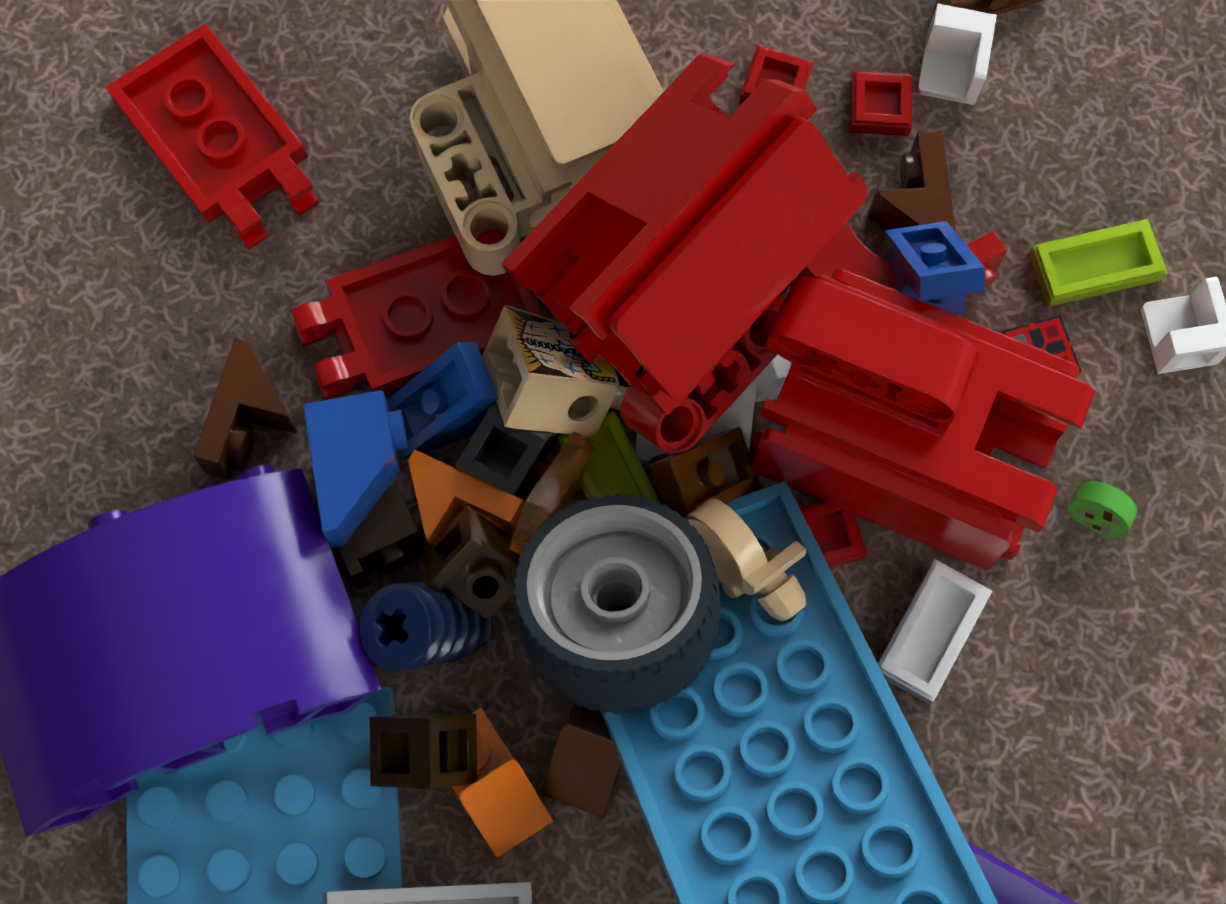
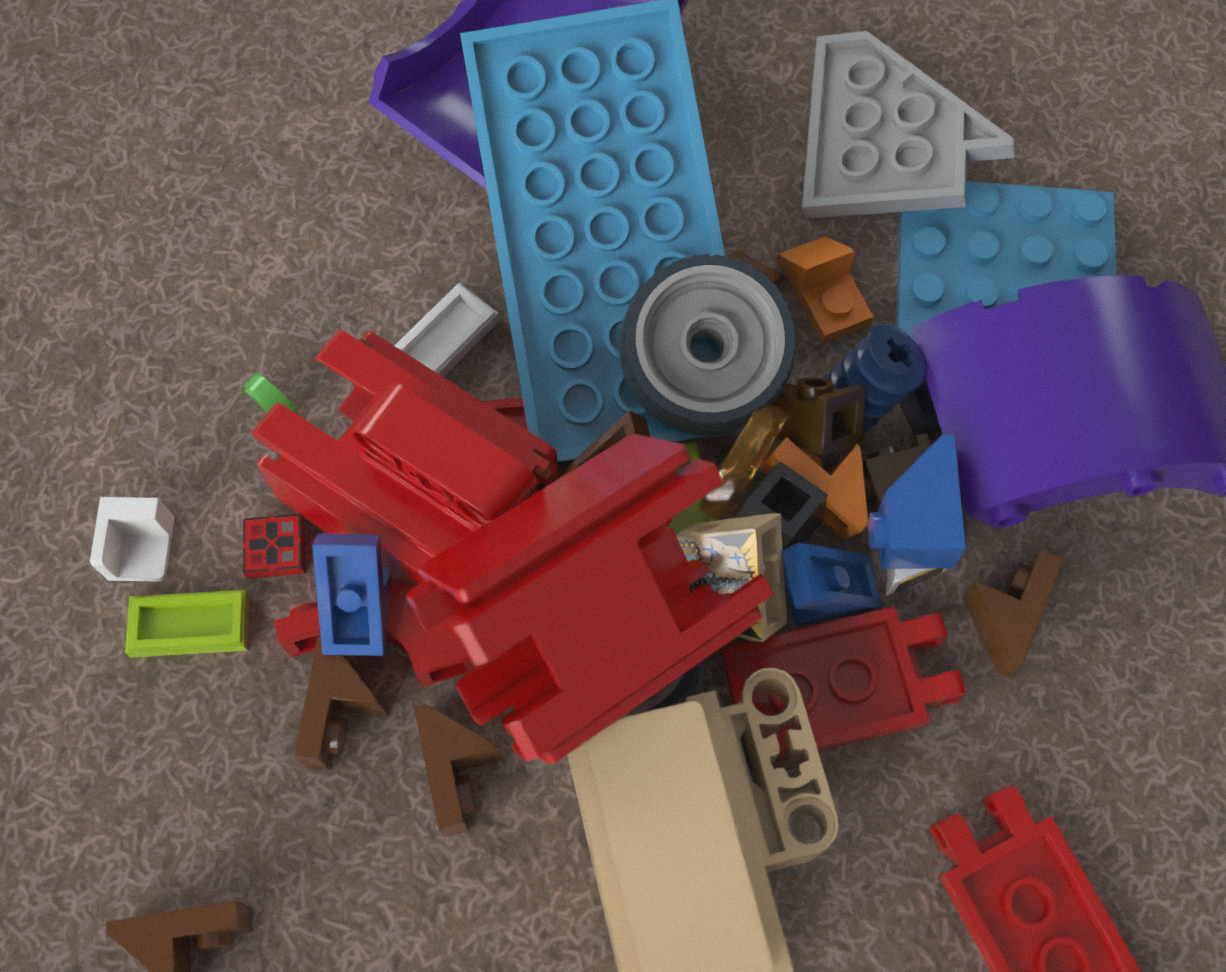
camera: 165 degrees left, 5 degrees down
(423, 750) = (878, 287): dark brown brick -> none
(744, 565) = (582, 357): tan piece -> none
(774, 64) = (439, 874): red tile -> none
(881, 103) = (339, 829): red tile -> none
(956, 54) = (246, 859): white panel -> none

